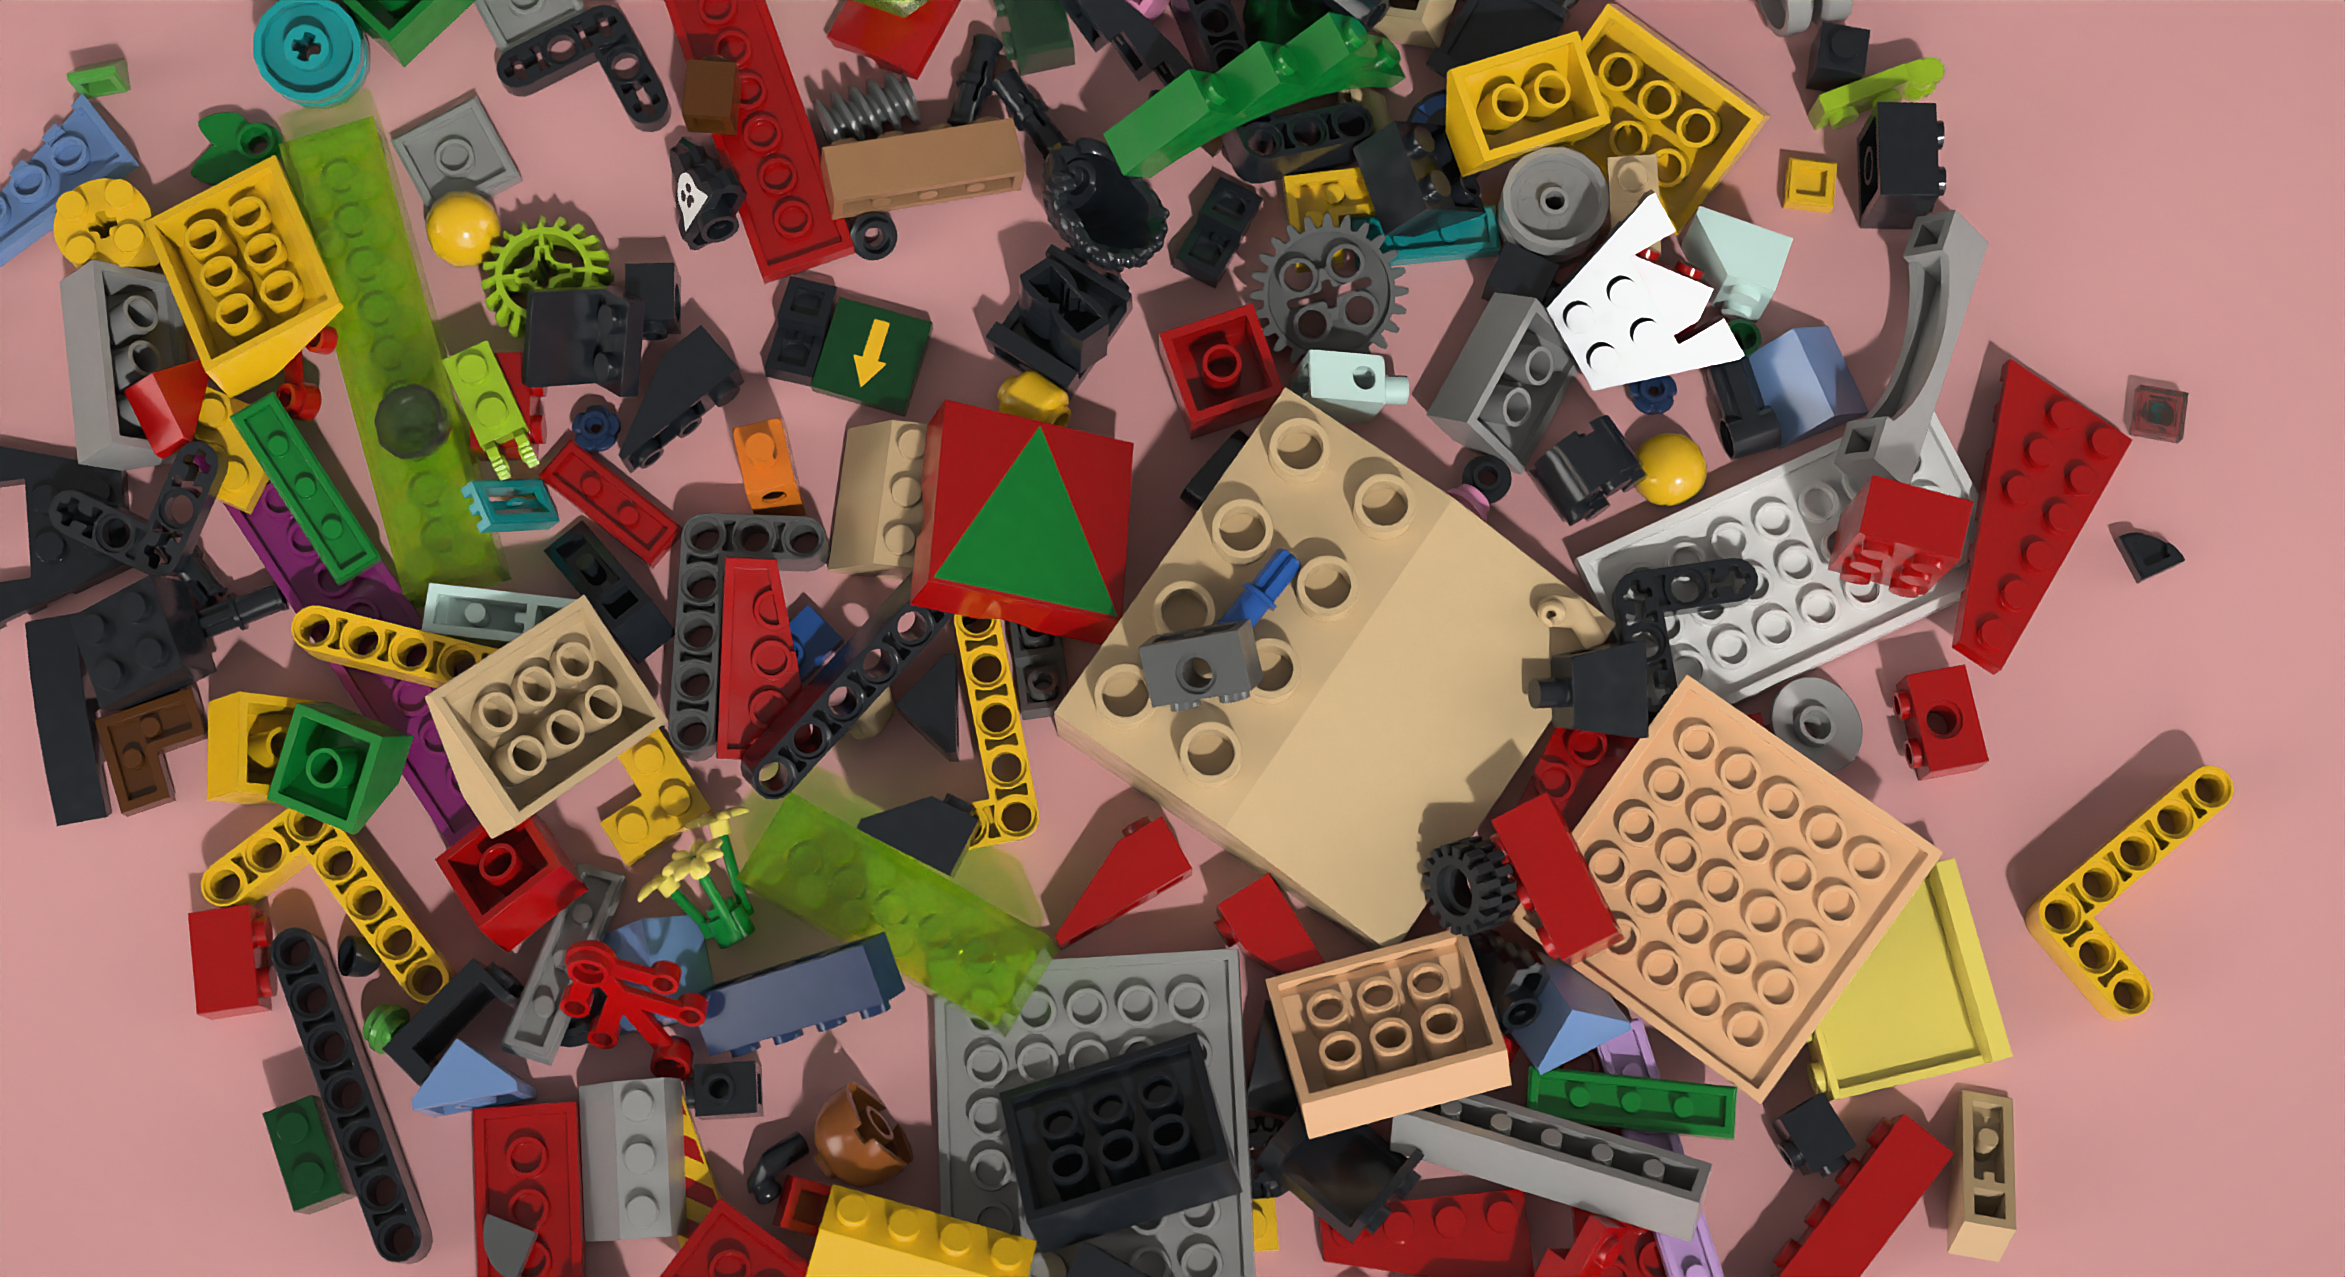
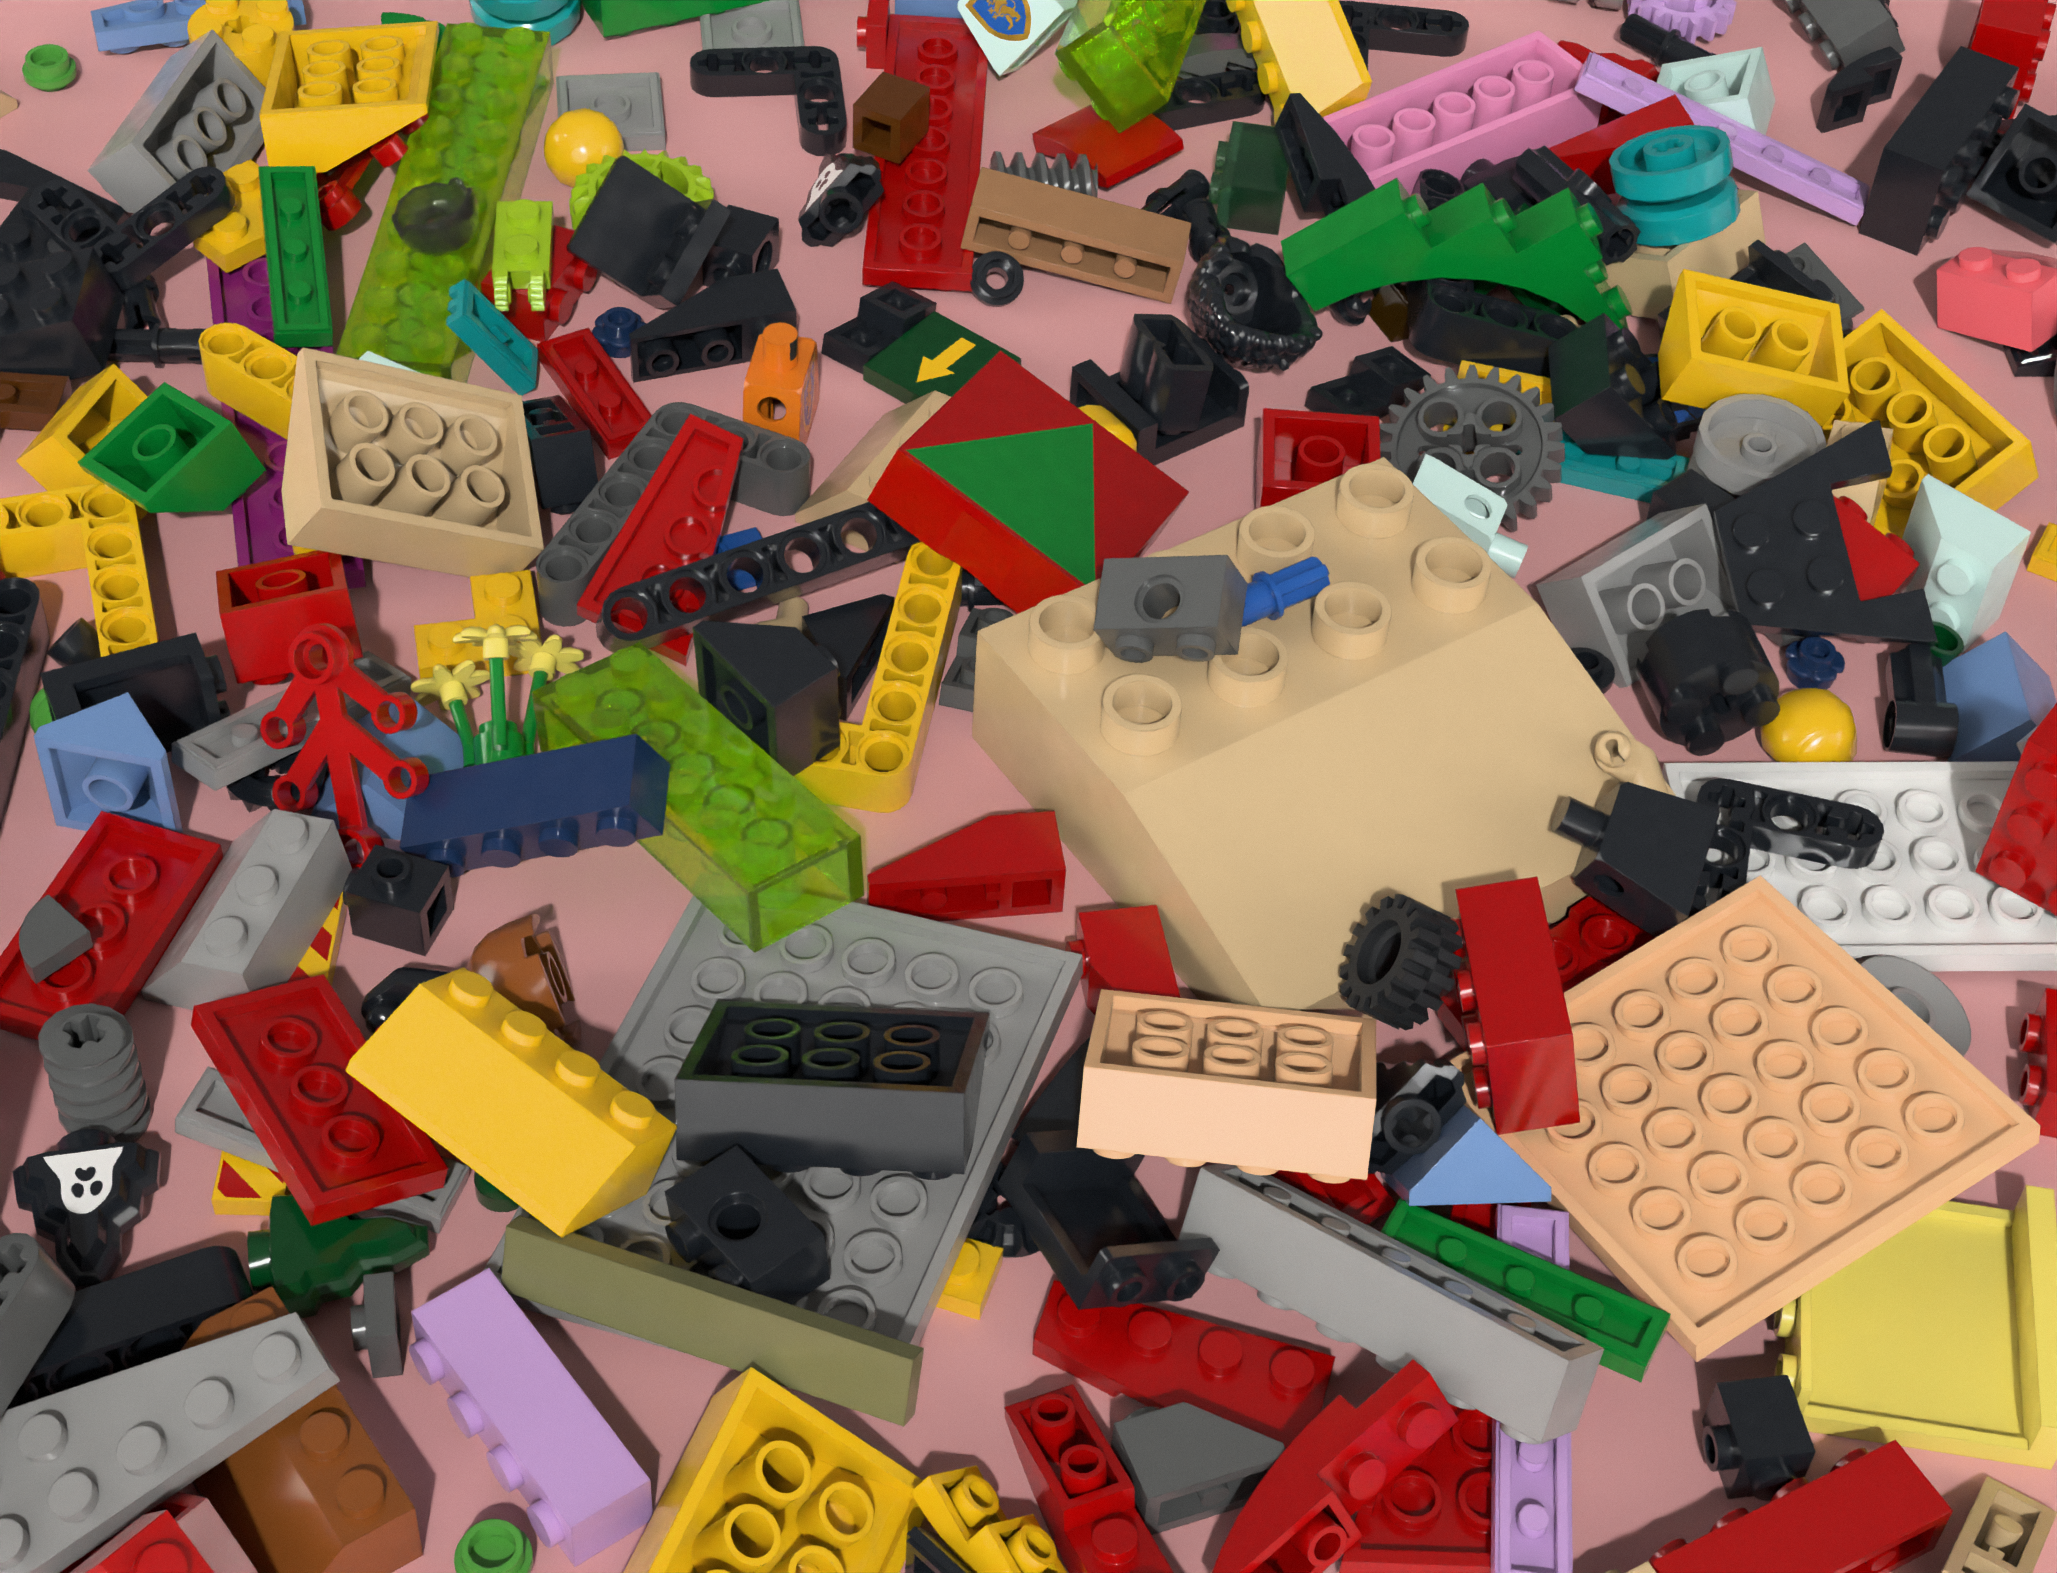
camera: 20 degrees right, 30 degrees down
(169, 405) = (210, 140): red slope -> none

